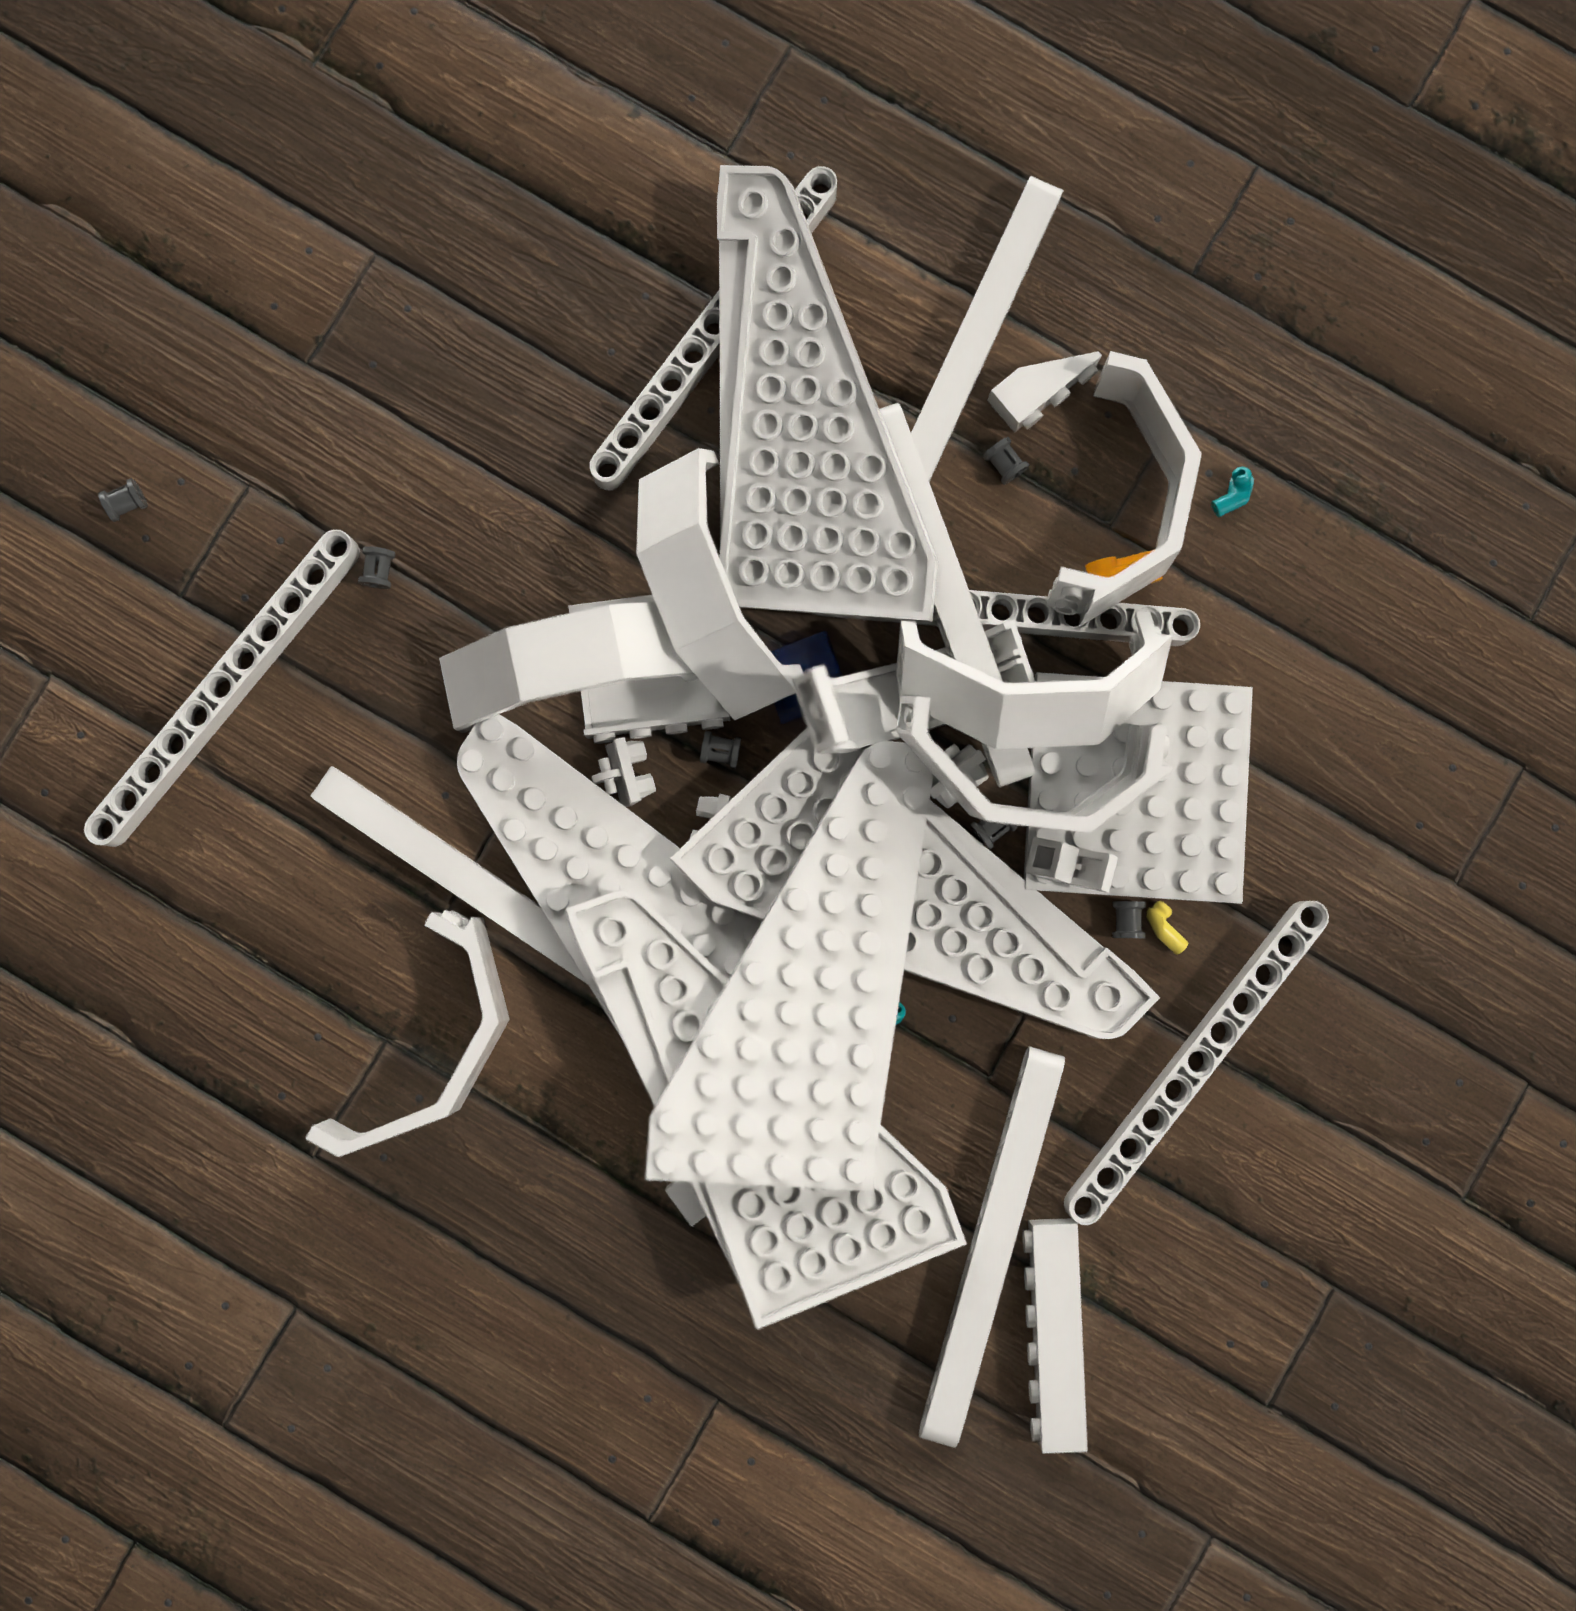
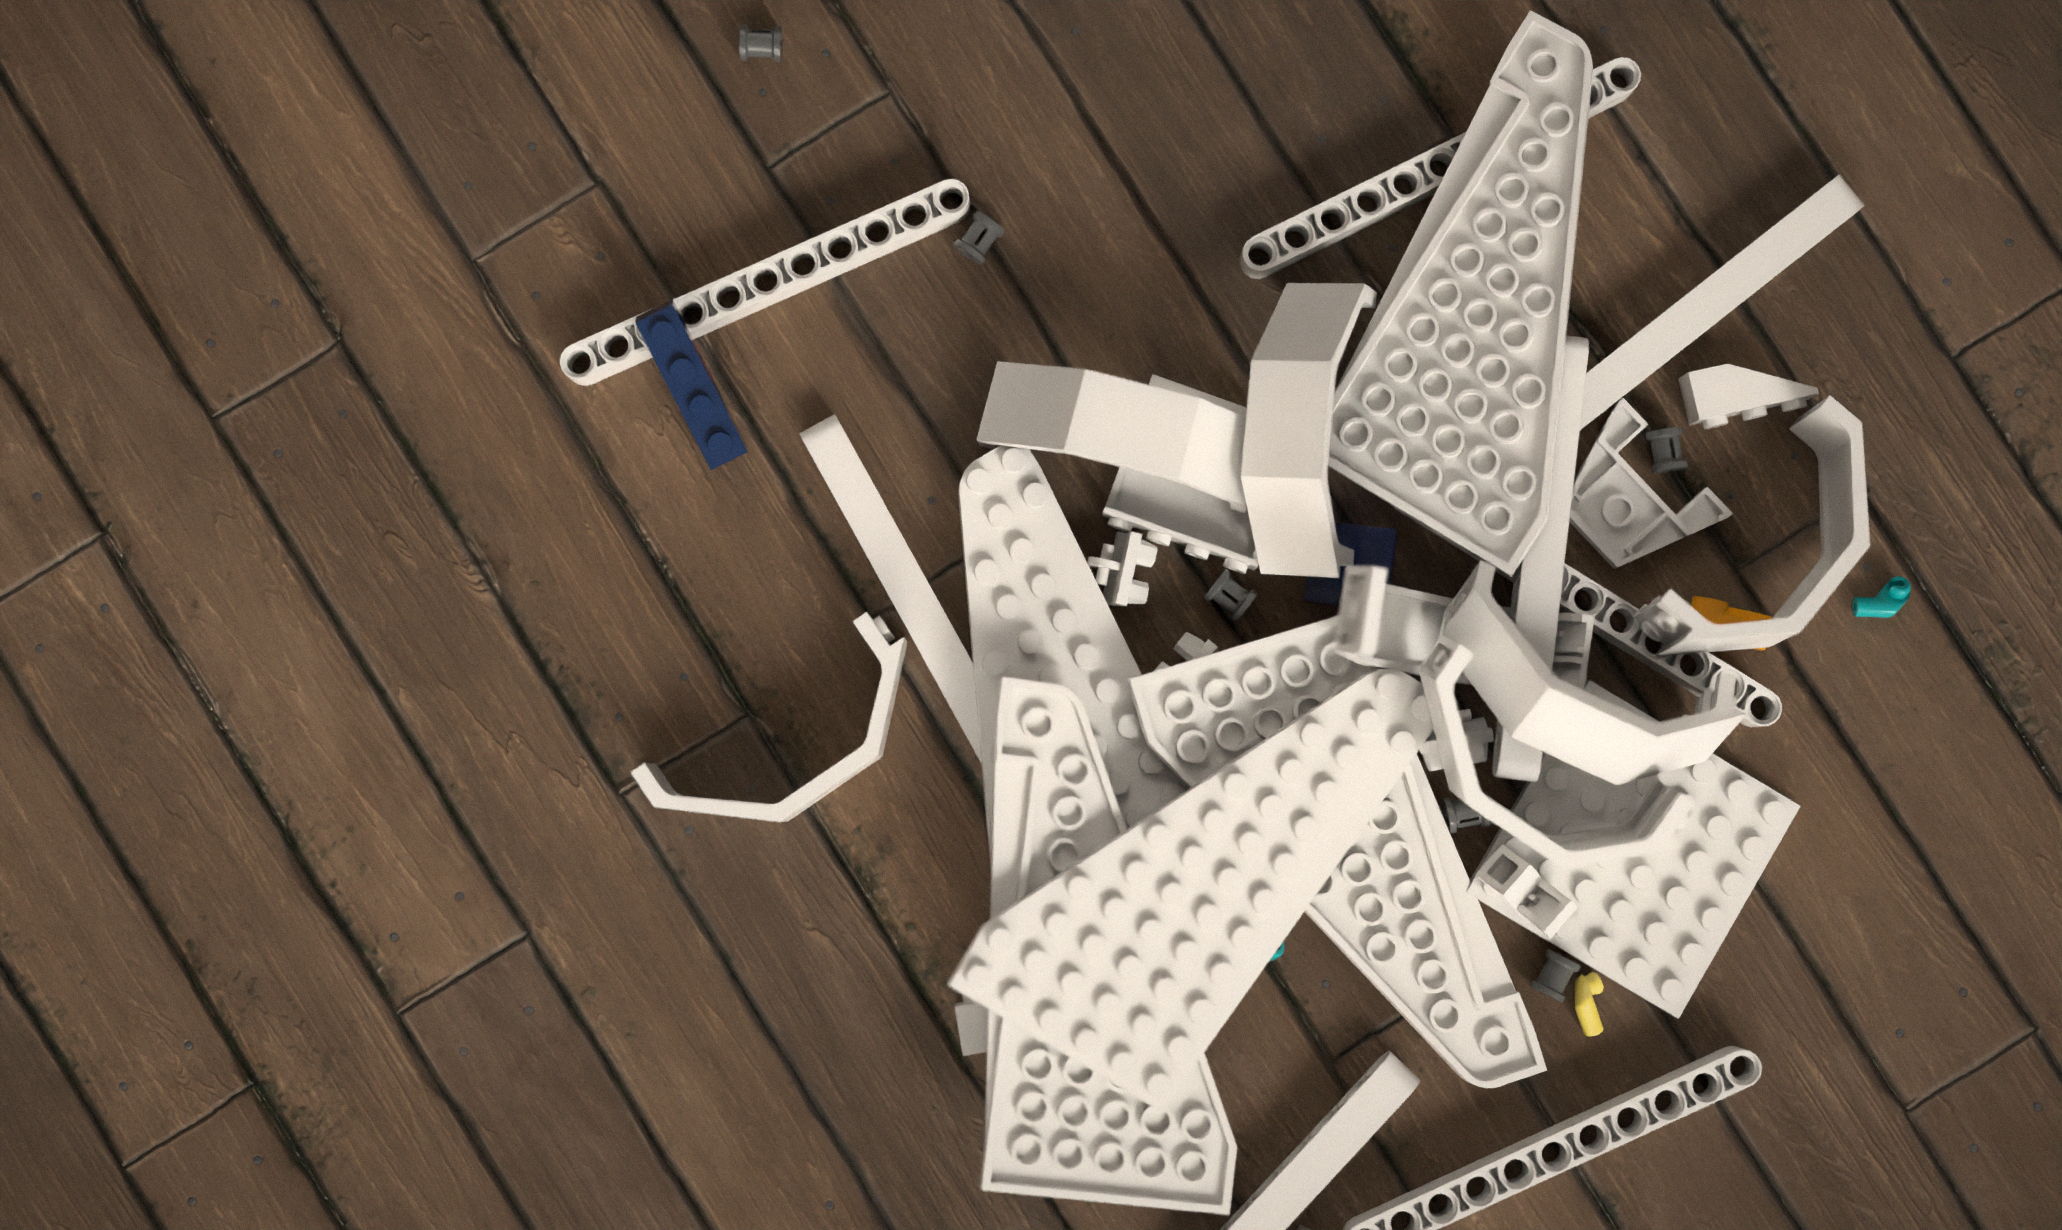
camera: 30 degrees right, 0 degrees up
(200, 800) = (691, 384): none -> dark blue brick
(992, 525) = (1619, 509): none -> white wing

